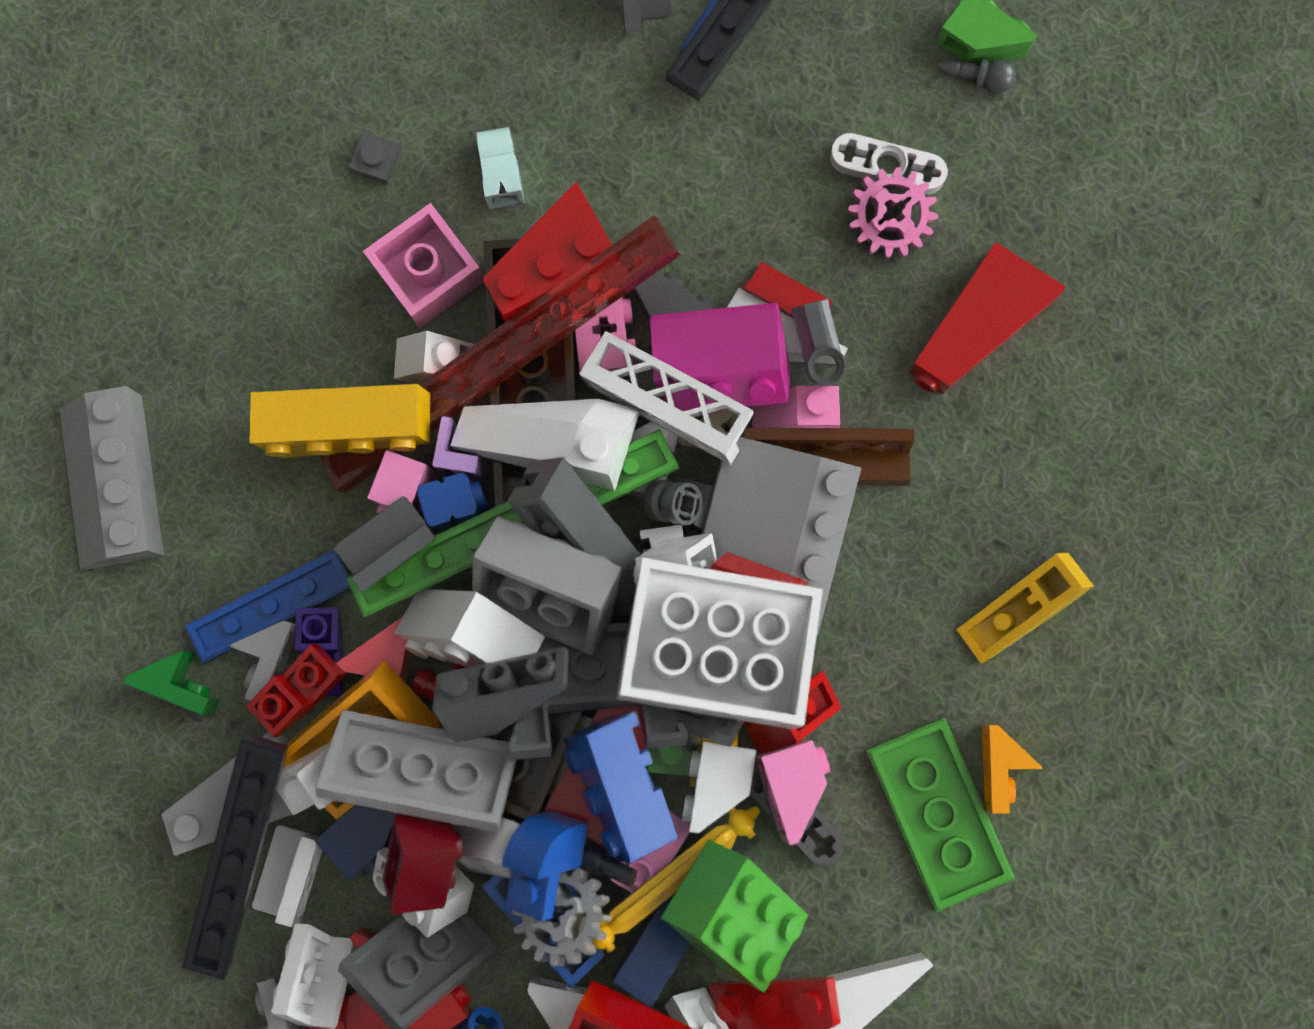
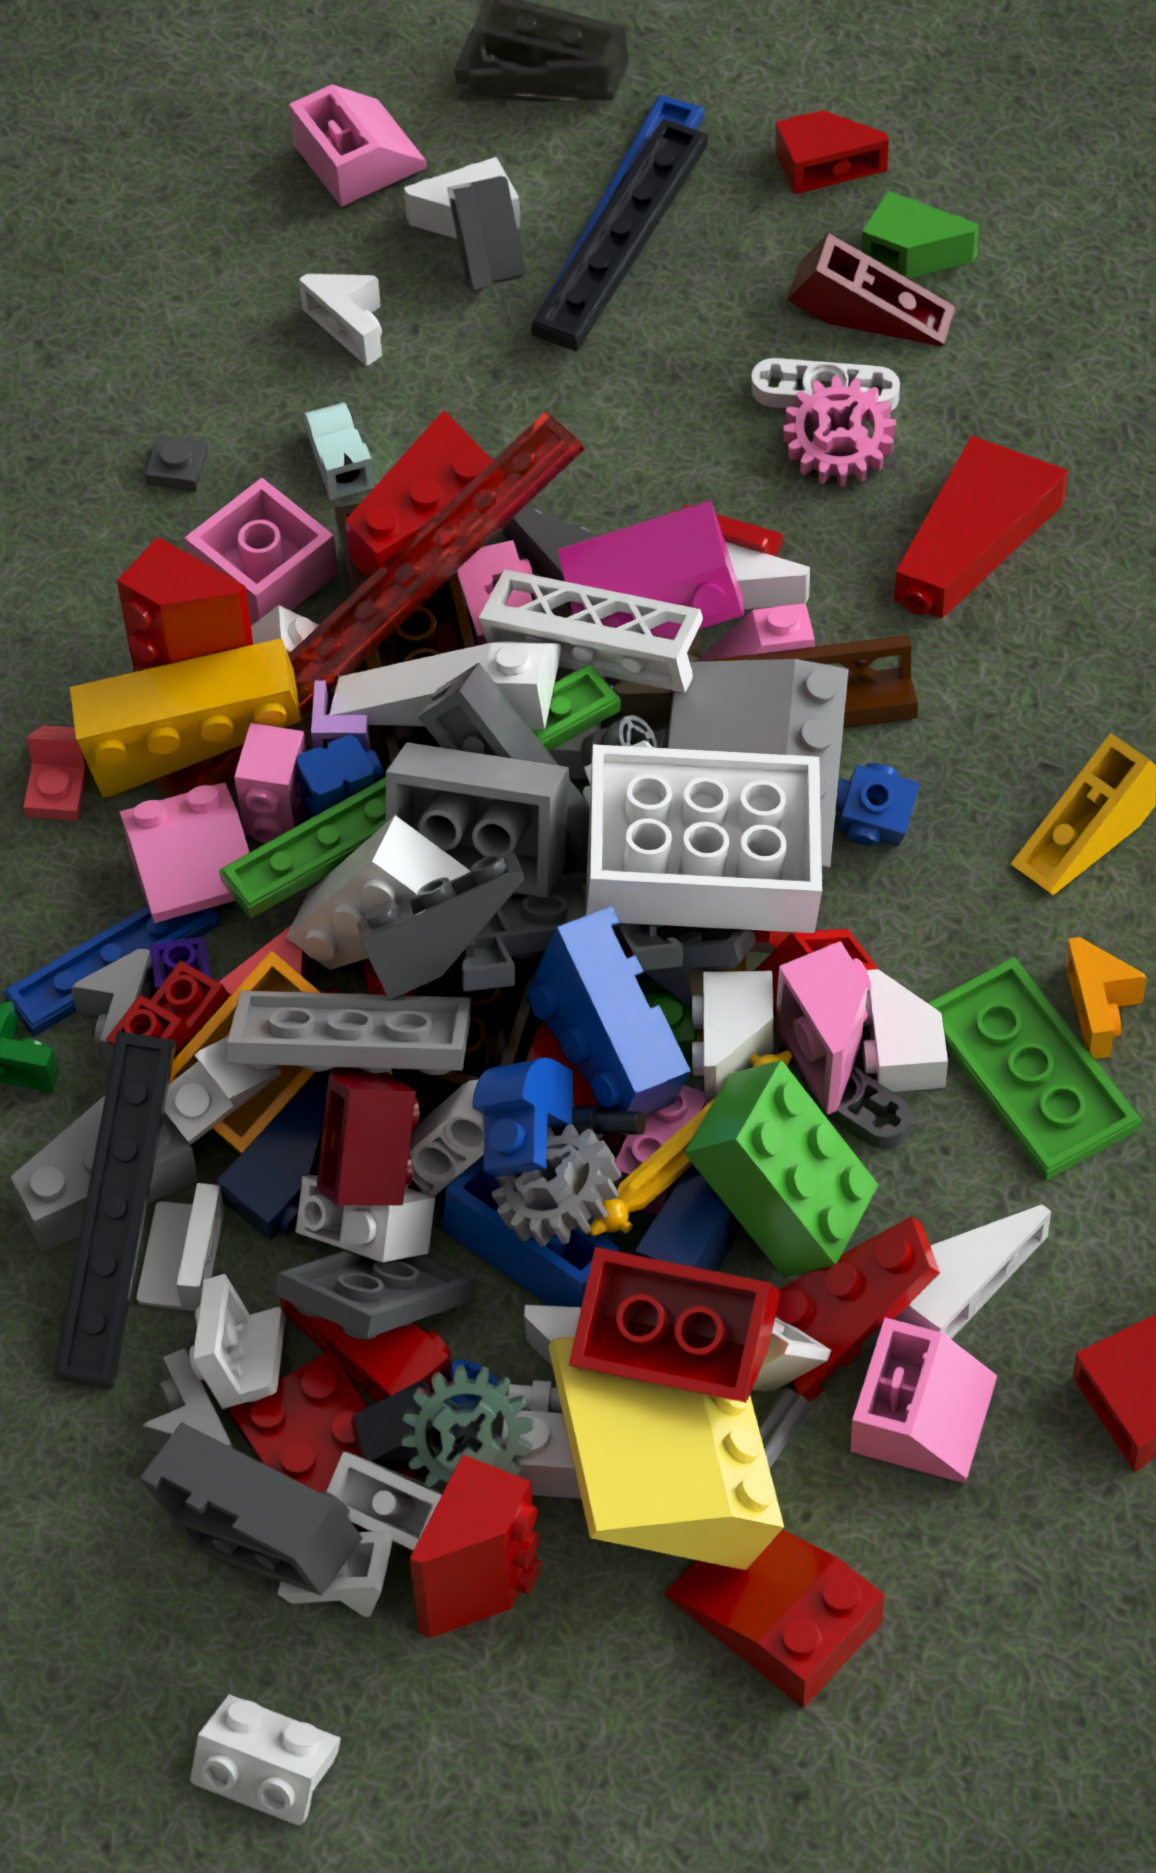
camera: 10 degrees left, 25 degrees down
(237, 451) = (55, 775): none -> coral slope
(316, 524) = (181, 847): none -> bright pink slope
(331, 354) = (180, 608): none -> red slope
(384, 542) = (267, 815): dark grey panel -> none
(520, 30) = (345, 310): none -> white slope
(818, 337) = (771, 553): dark grey piece -> none
(851, 783) = (906, 1038): none -> white slope
(864, 574) = (875, 805): none -> blue brick
(934, 83) = (865, 295): none -> dark red slope
(996, 76) = (941, 278): dark grey bar -> none

